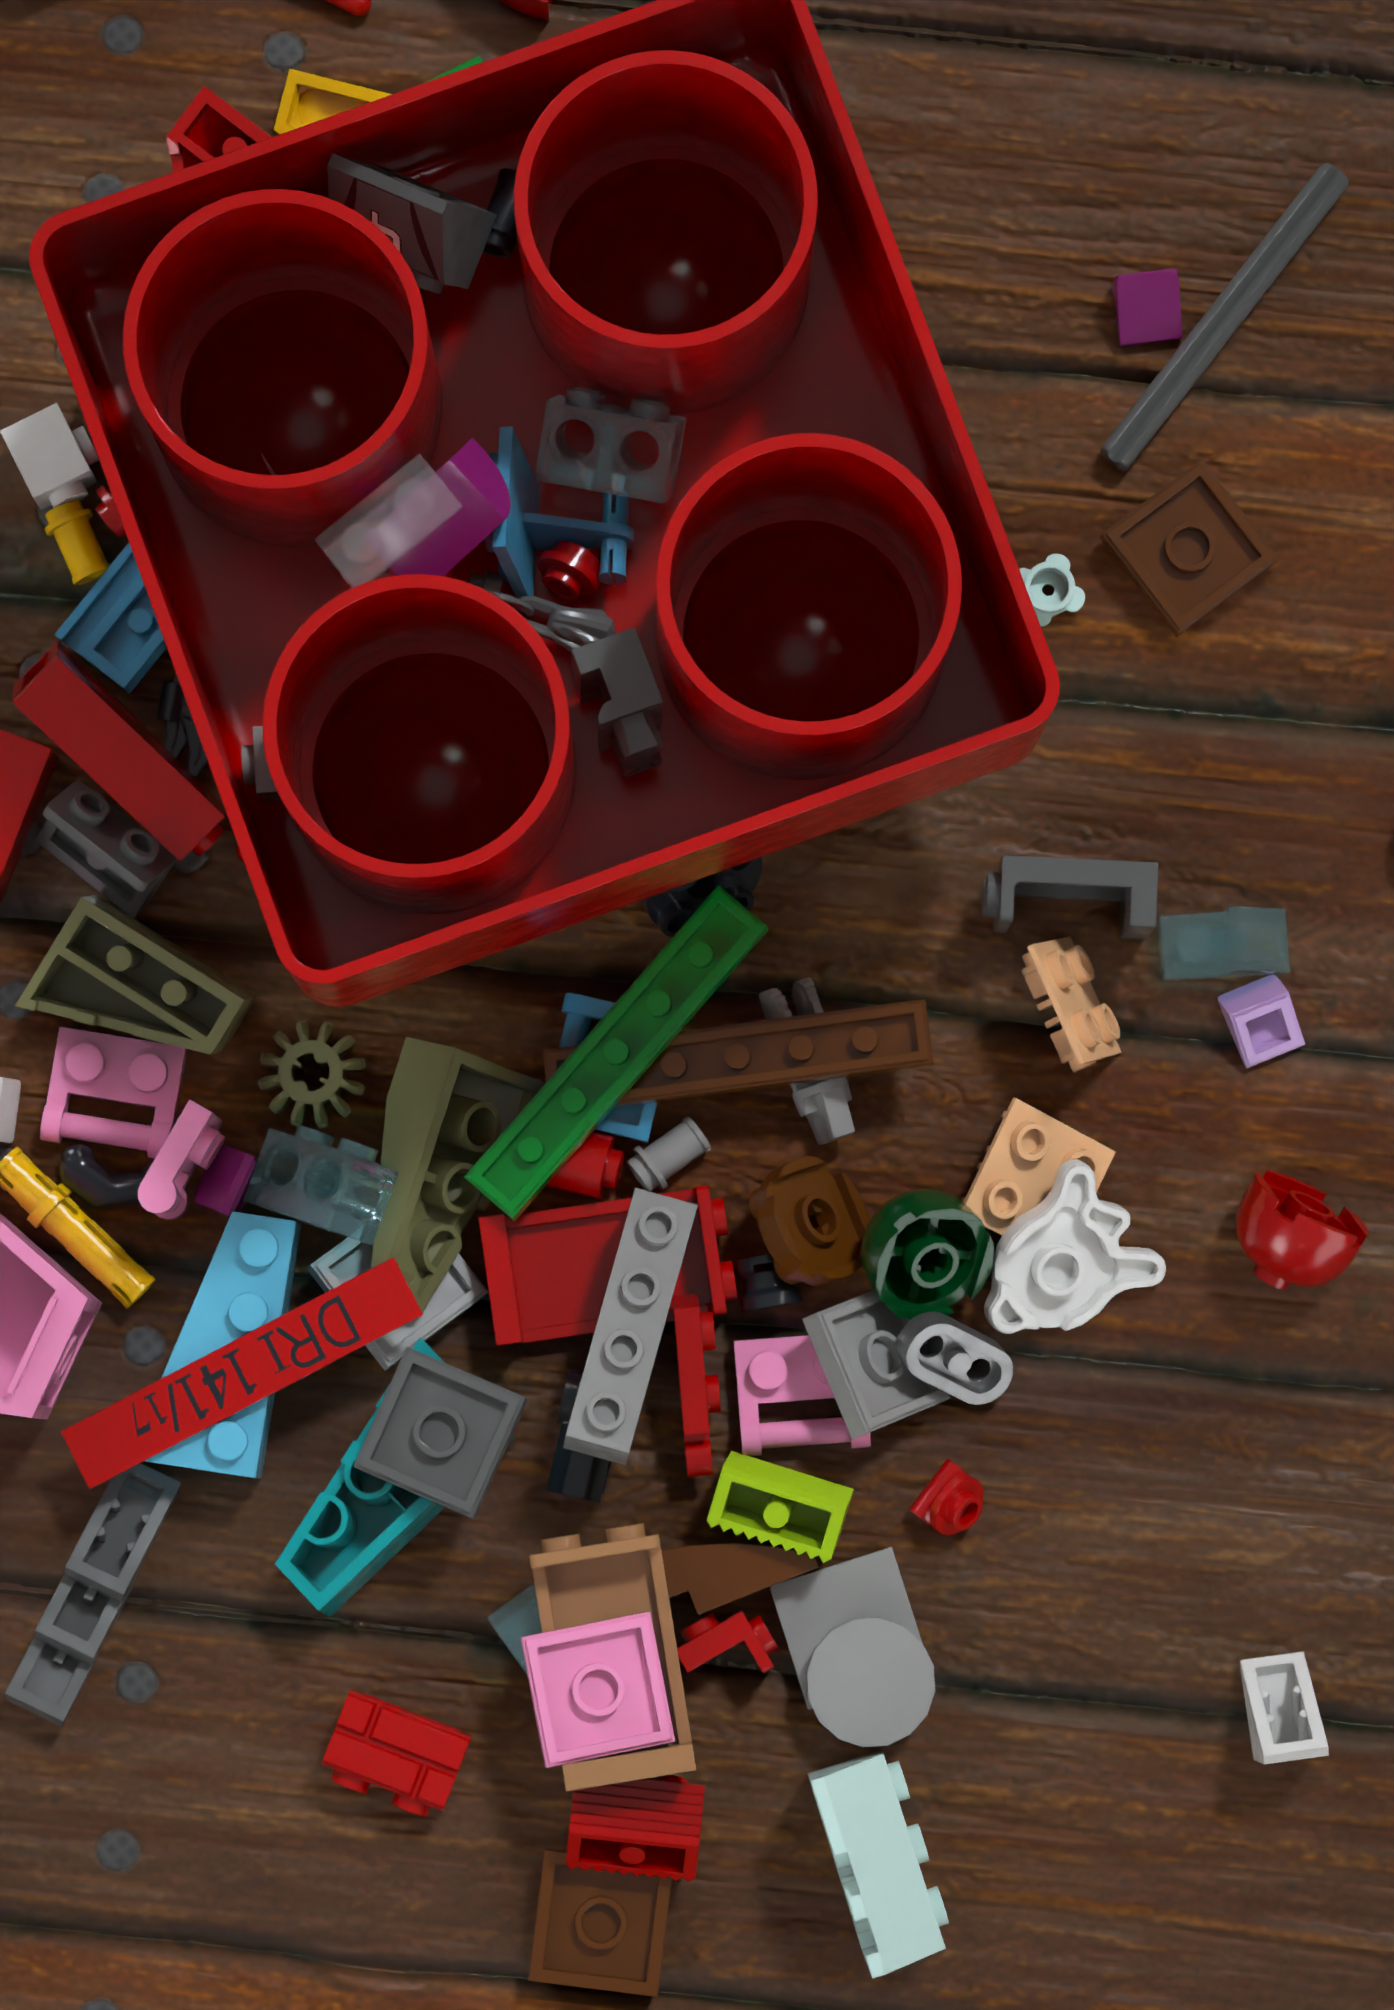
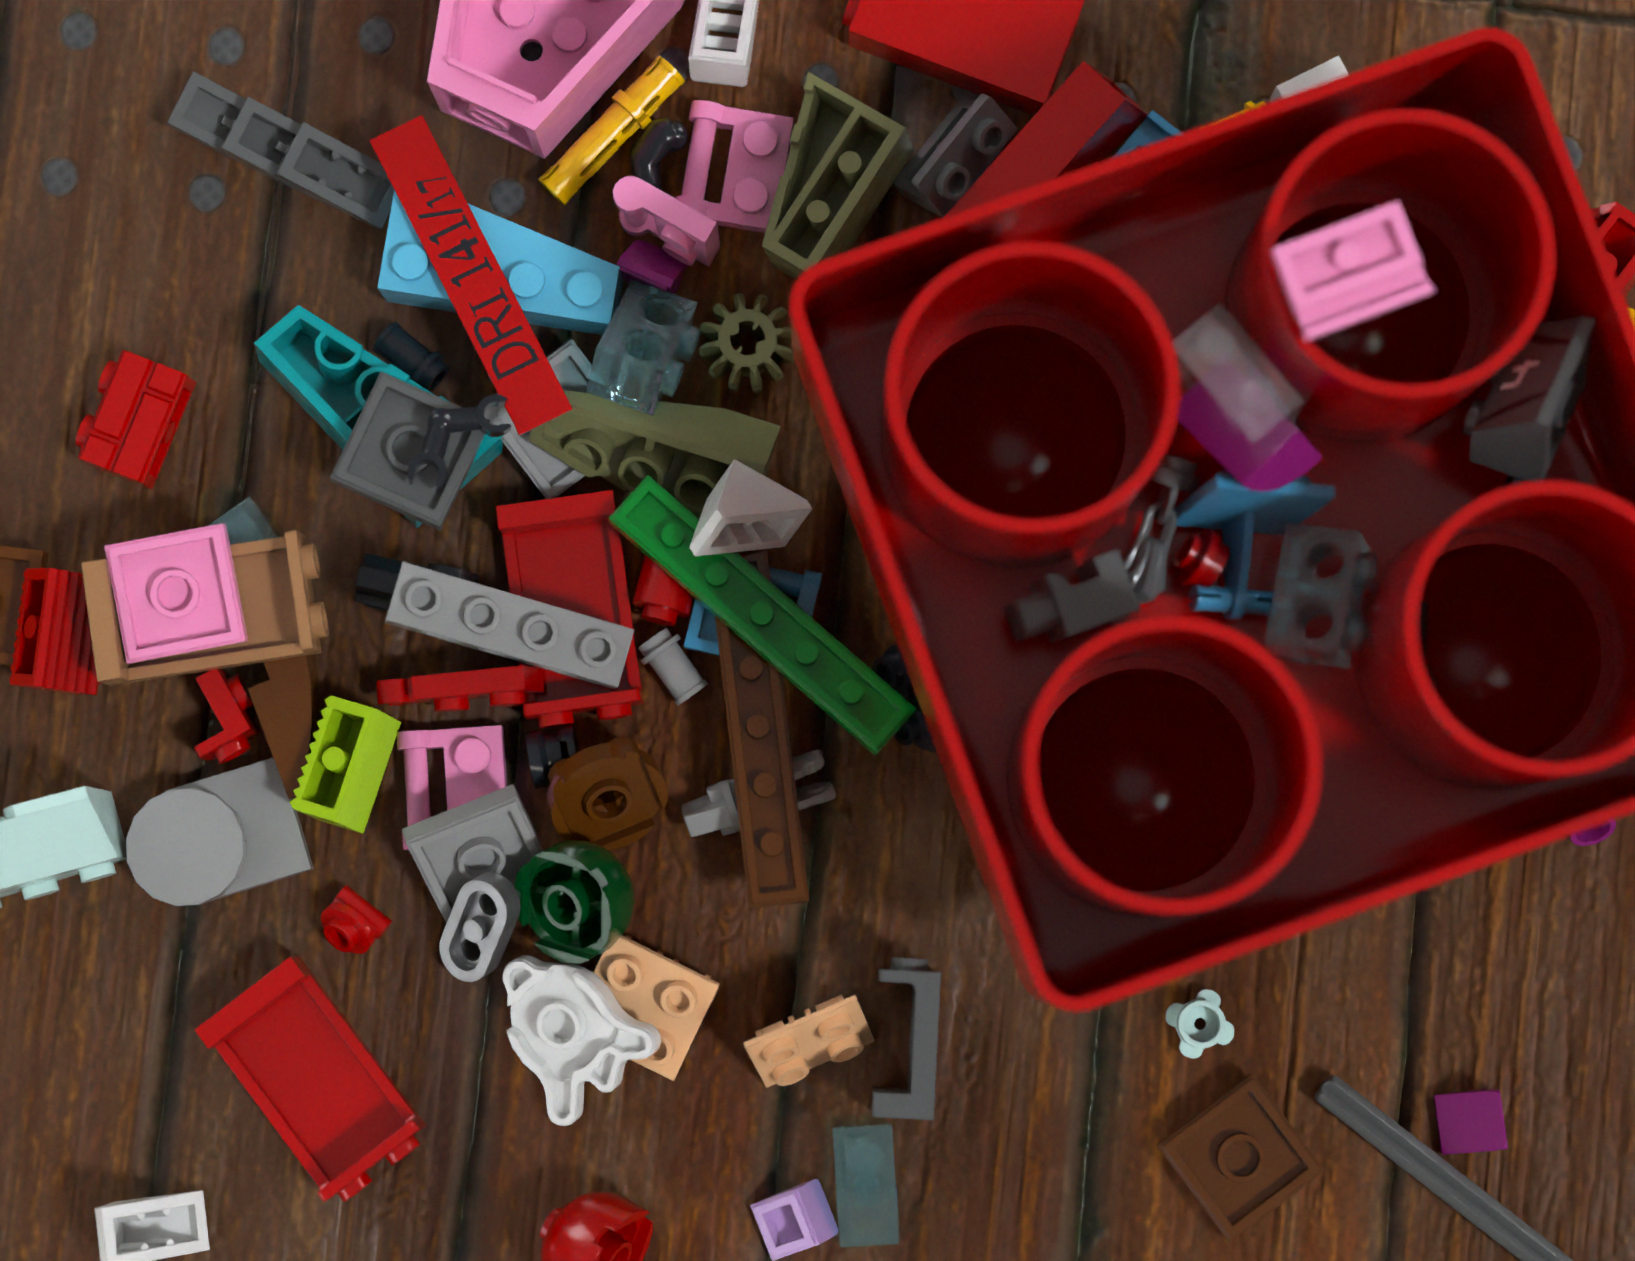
camera: 95 degrees right, 0 degrees up
(298, 396) = (1351, 271): none -> bright pink plate
(326, 1446) = (411, 356): none -> black pin
(410, 1390) = (446, 421): none -> black arm
(506, 1069) = (747, 514): none -> white slope
(1121, 1538) = (314, 1079): none -> red panel

